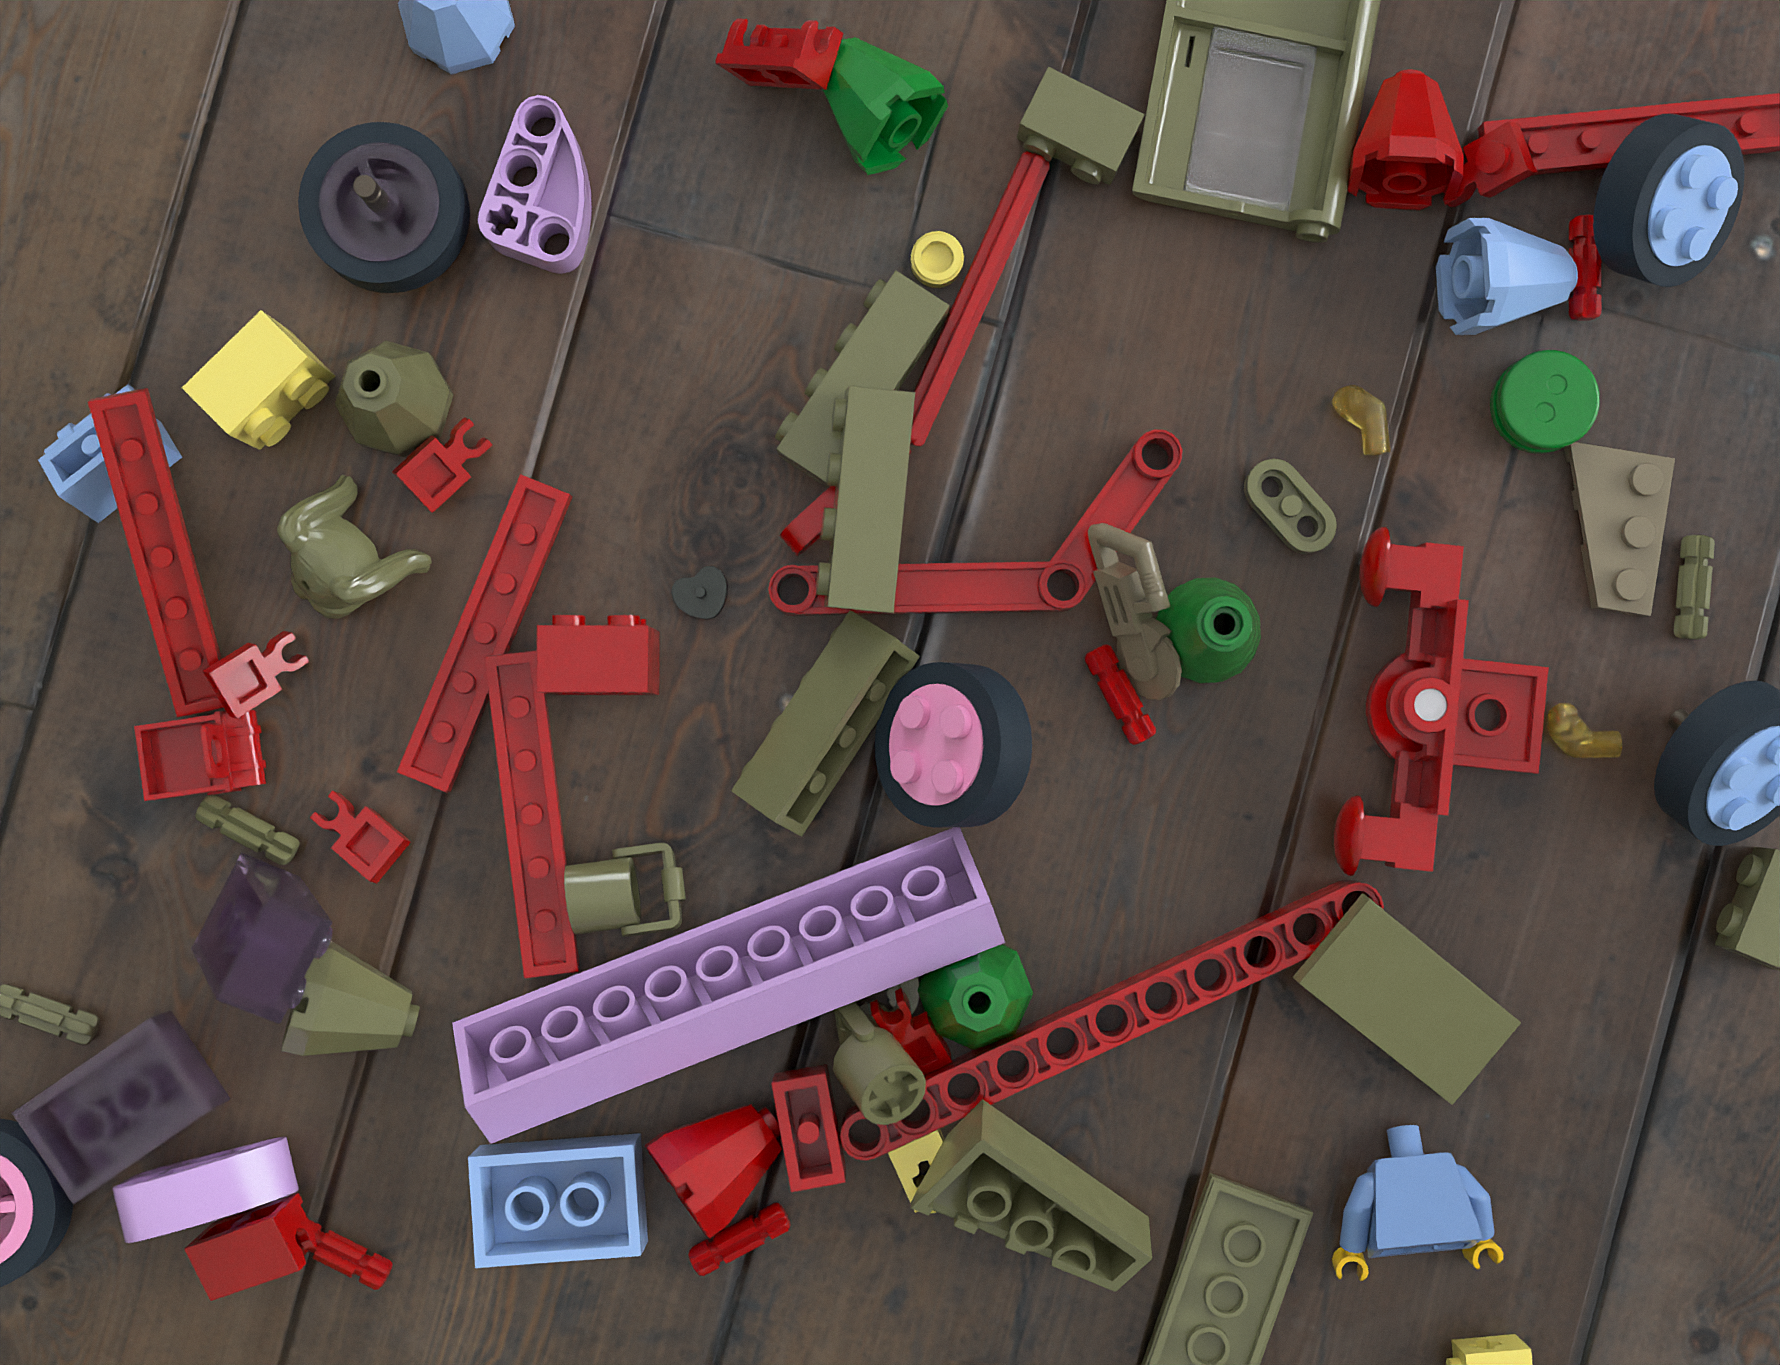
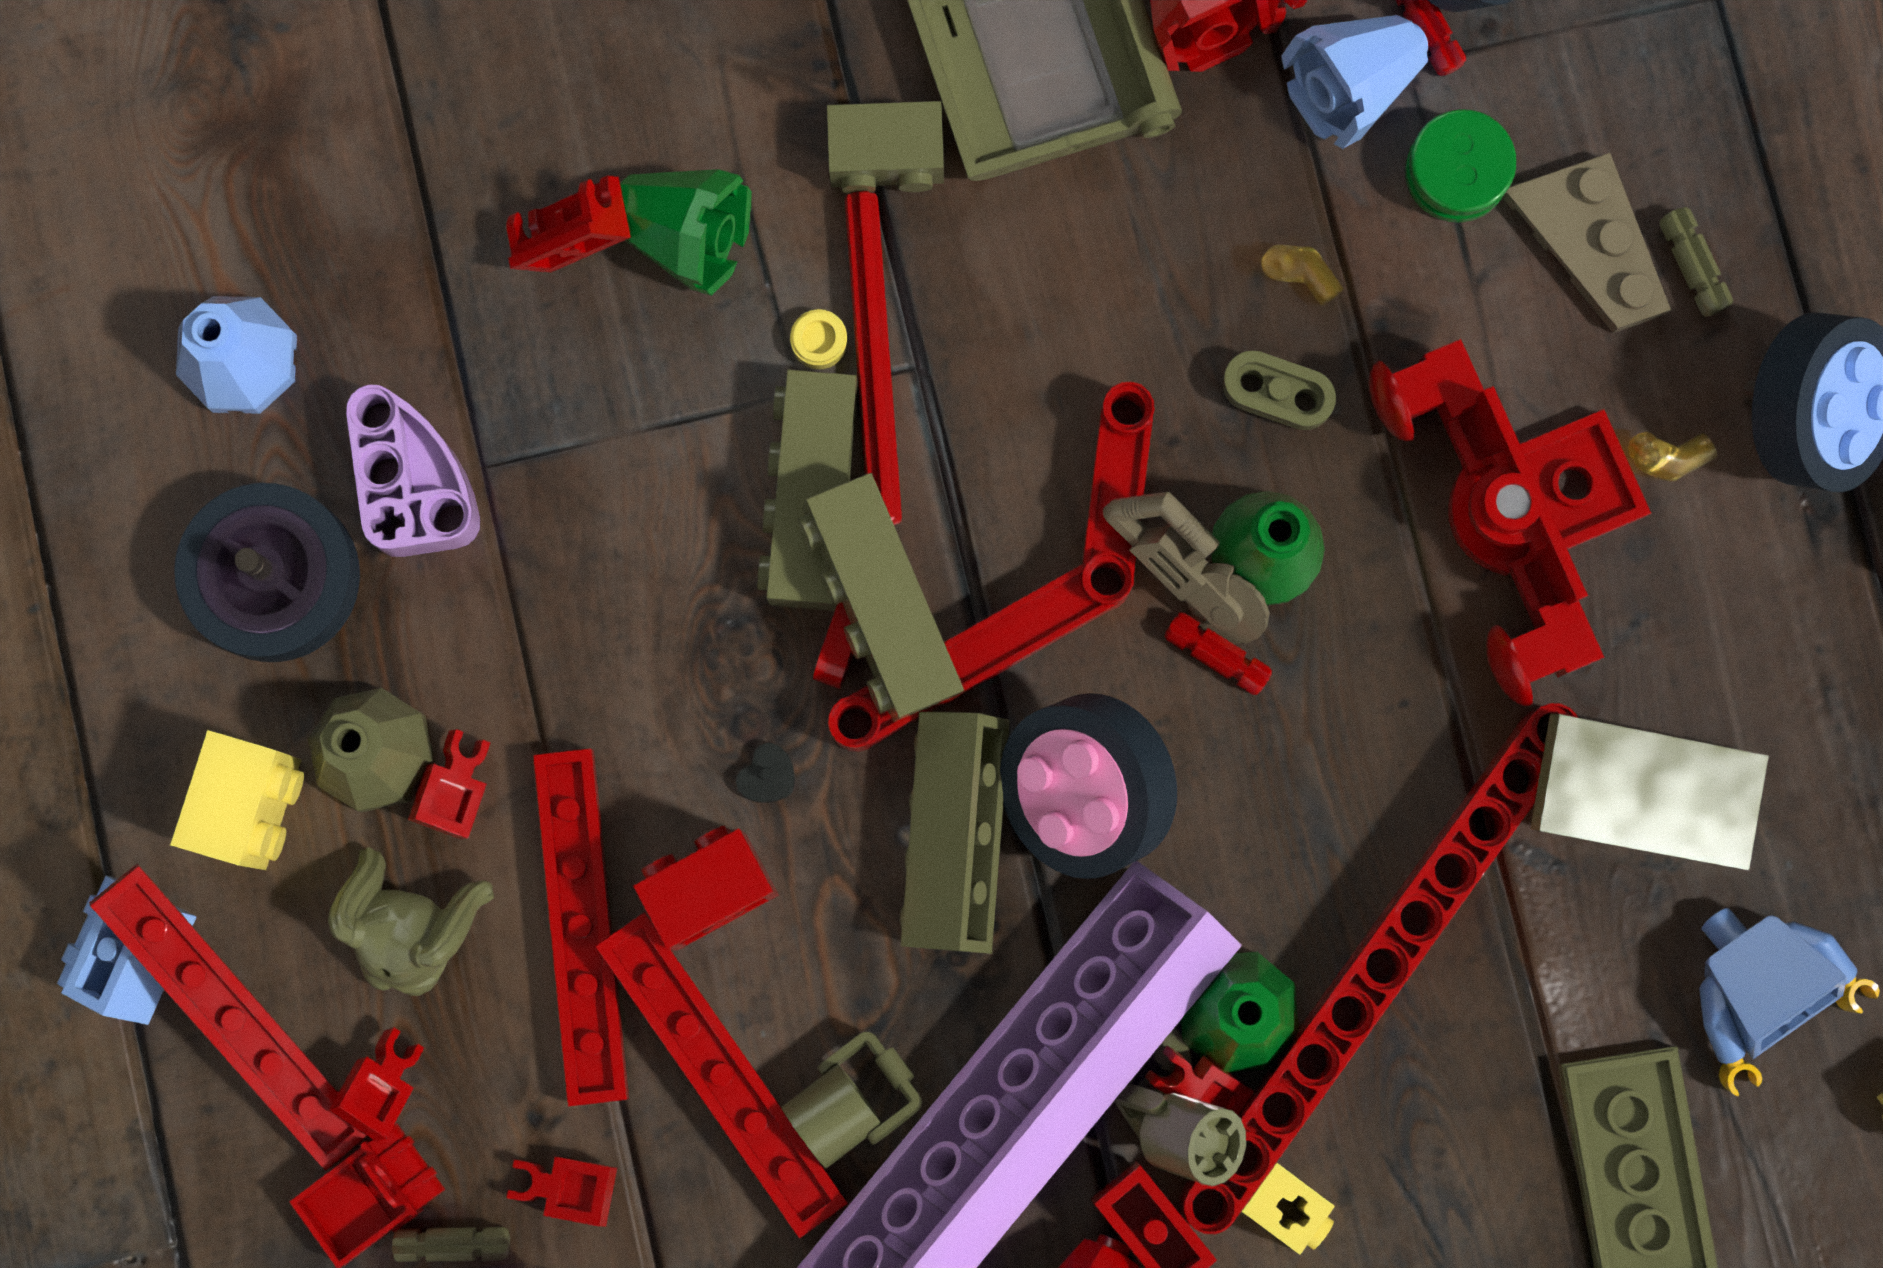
camera: 25 degrees left, 5 degrees down
(1035, 1199) = (1405, 1177): olive wedge -> none

